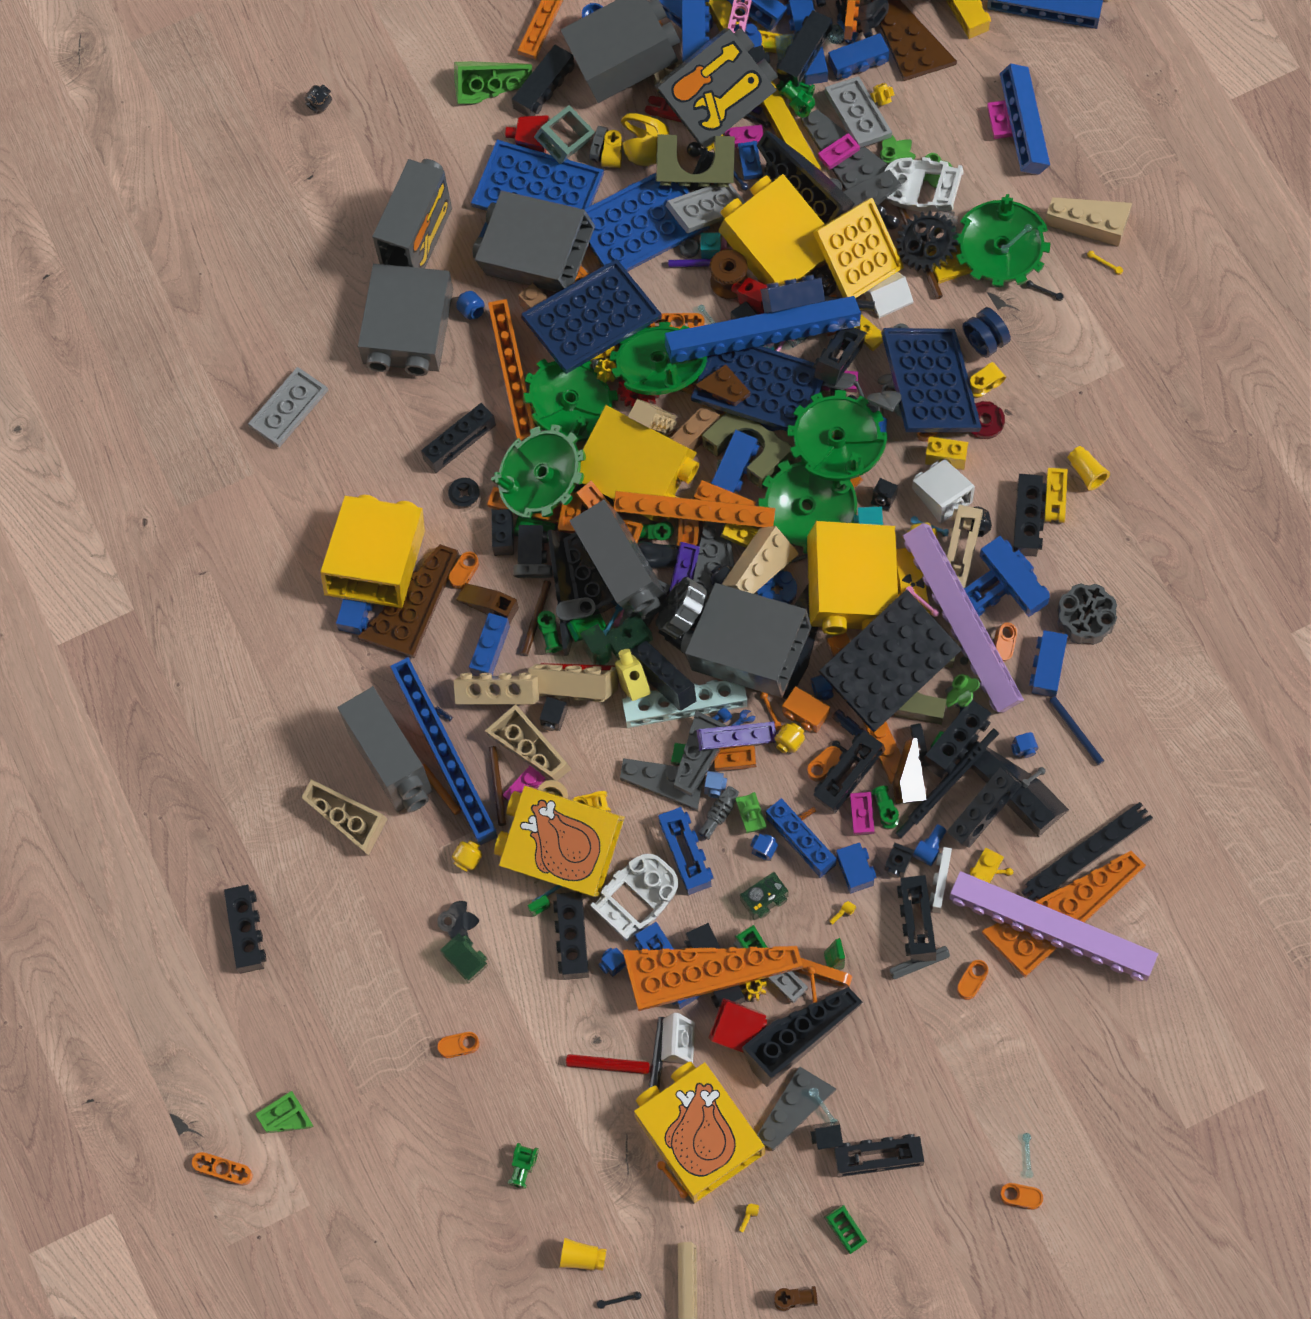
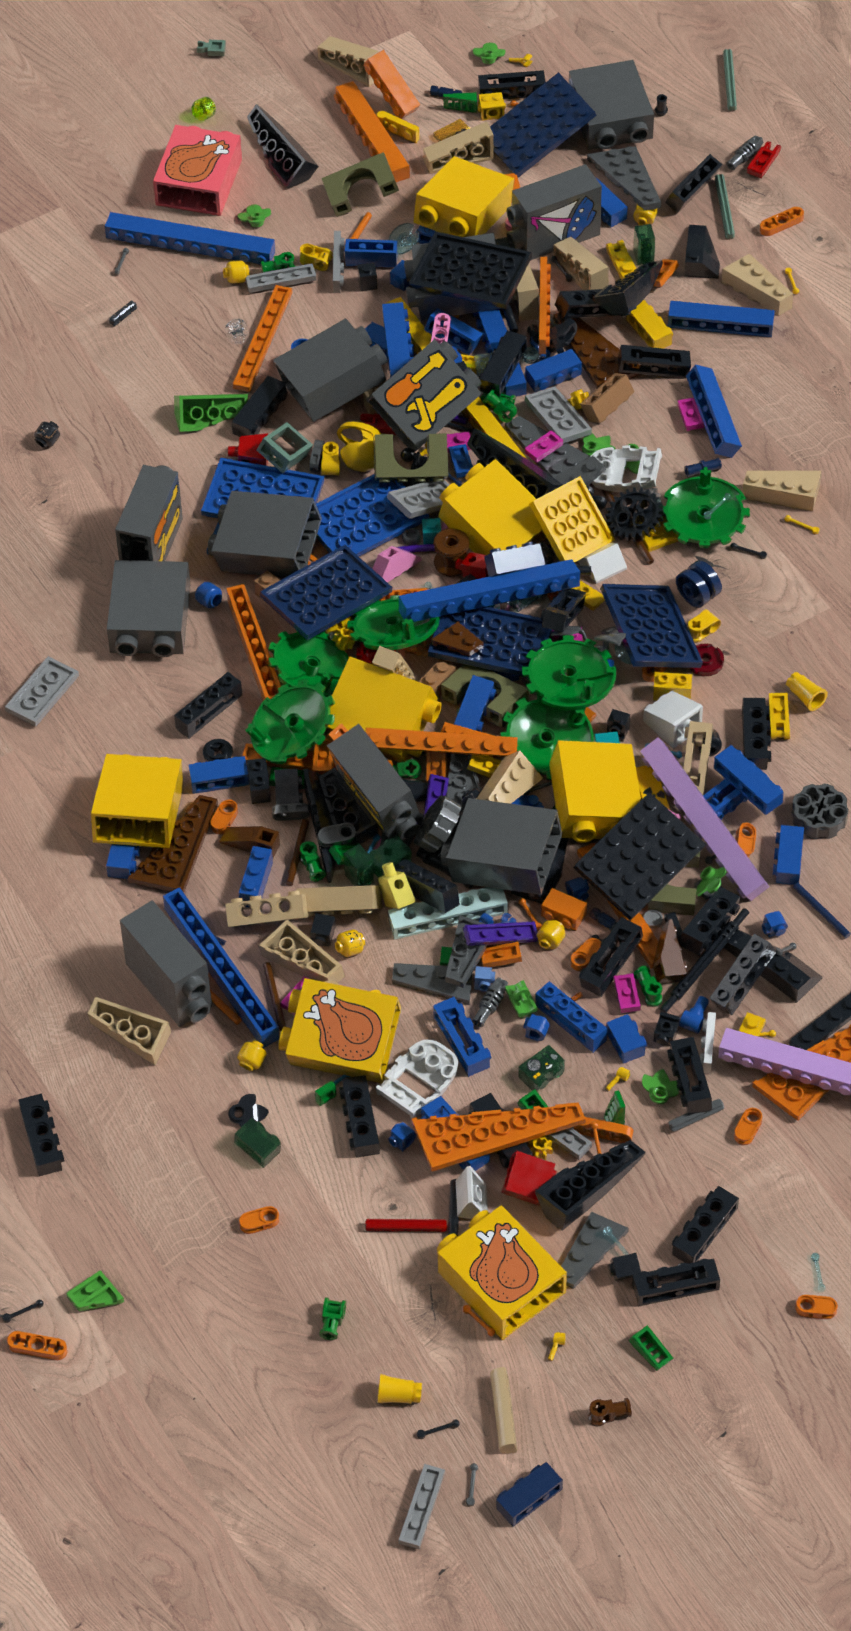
camera: 10 degrees left, 15 degrees down
(195, 1133) = (7, 1317): none -> black hinge
(461, 521) = (218, 774): none -> blue brick
(580, 732) = (350, 943): none -> yellow head
(667, 281) = (394, 562): none -> bright pink slope
(885, 923) = (660, 1085): none -> bright green plate
(898, 725) = (653, 918): none -> light grey piece
(899, 1122) = (692, 1251): none -> black brick
(912, 95) = (607, 398): none -> medium nougat brick
(967, 53) = (654, 361): none -> black brick
(1006, 186) = (695, 468): none -> dark blue pin

